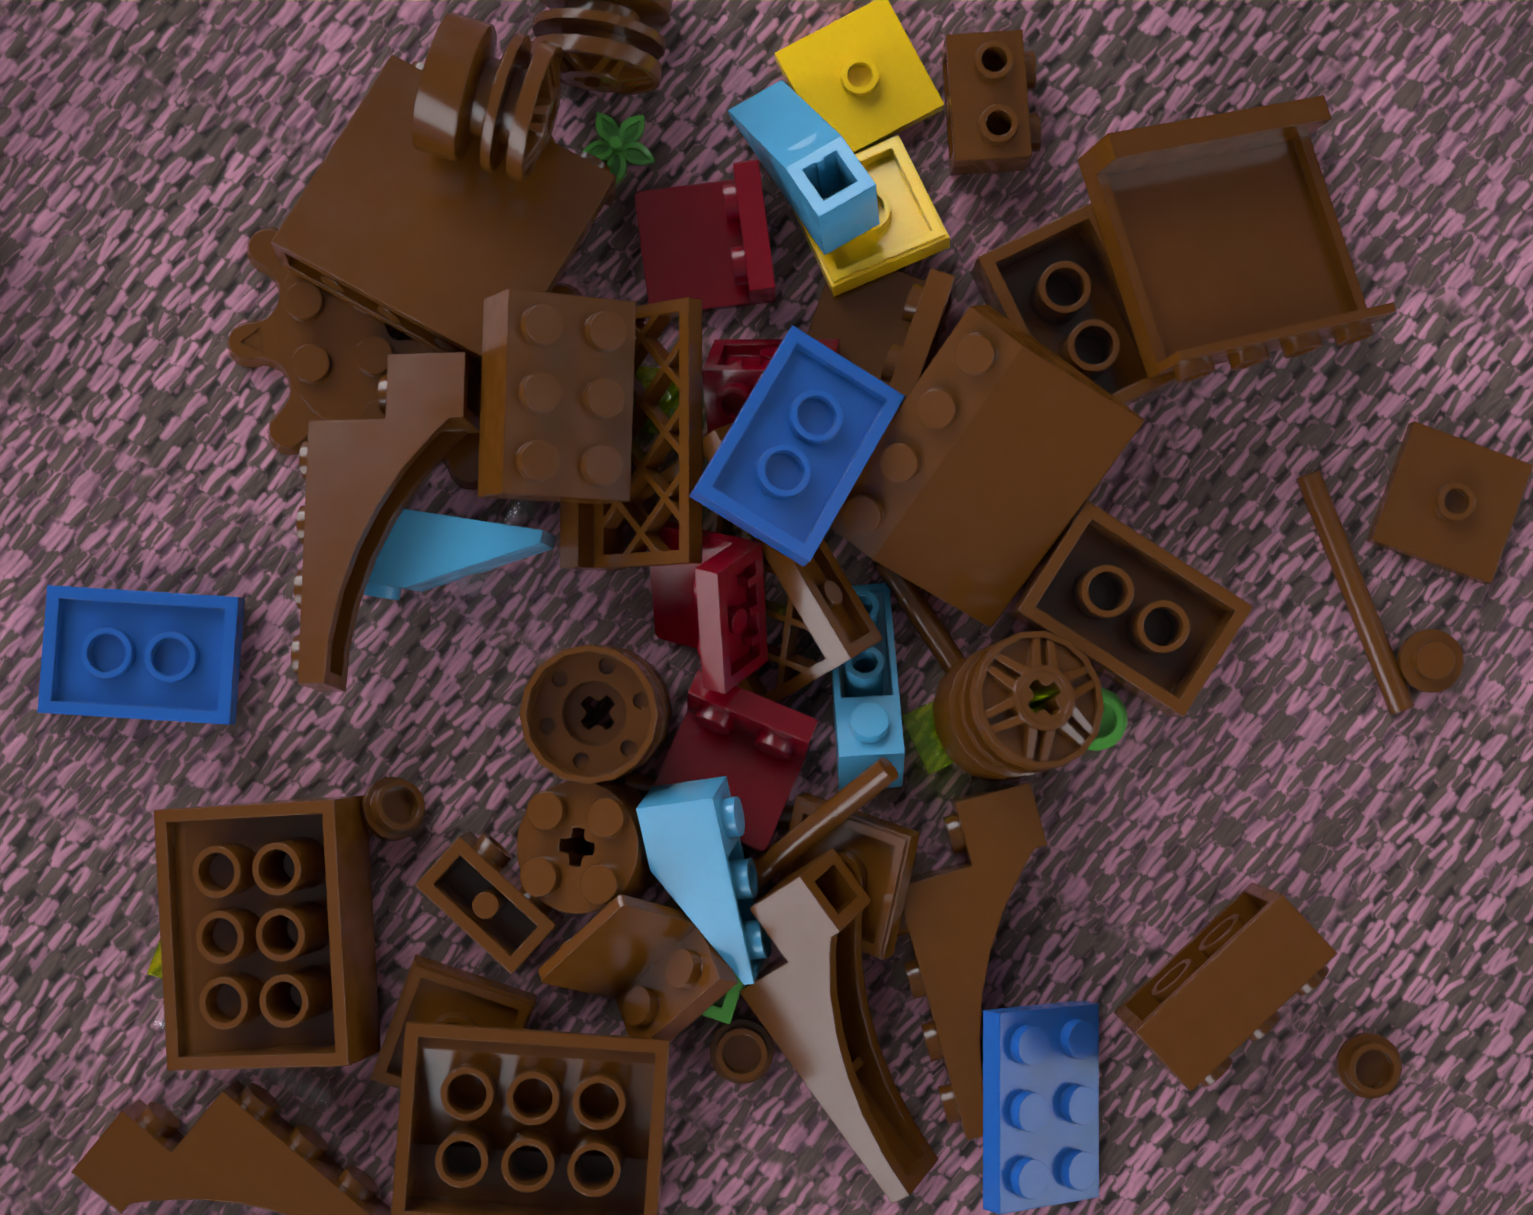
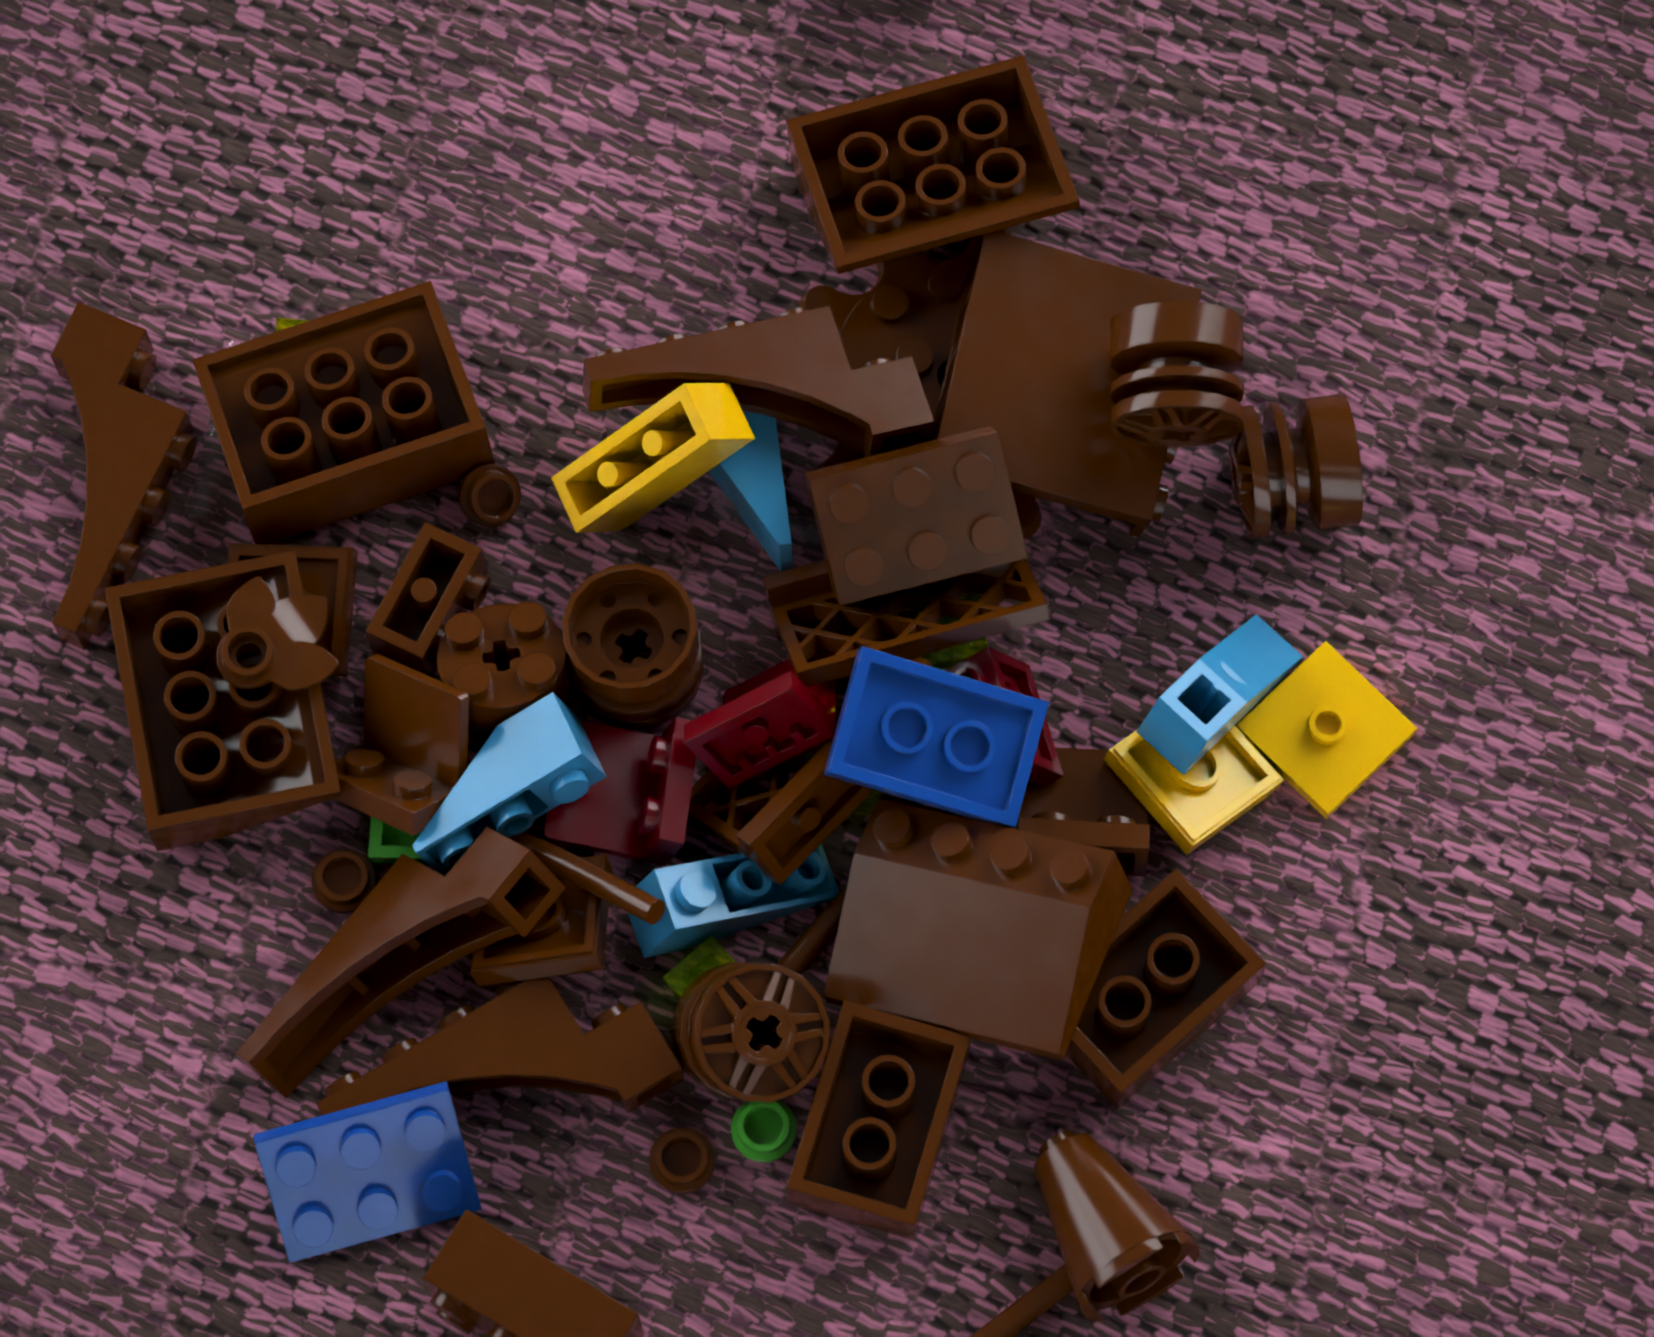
camera: 75 degrees right, 15 degrees down
(141, 655) = (571, 234): blue plate -> none
(184, 278) = (929, 165): none -> reddish brown slope
(413, 639) = (653, 457): none -> yellow brick
(493, 1058) = (282, 633): none -> reddish brown plate
(620, 144) = (1190, 525): bright green plant -> none
(708, 241) = (1119, 630): dark red bracket -> none
(988, 102) = (1341, 852): reddish brown brick -> none
(1103, 803) = (682, 1160): none -> reddish brown plate
(1226, 239) = (1274, 1110): reddish brown panel -> none
(1284, 428) = (1108, 1227): none -> reddish brown cone

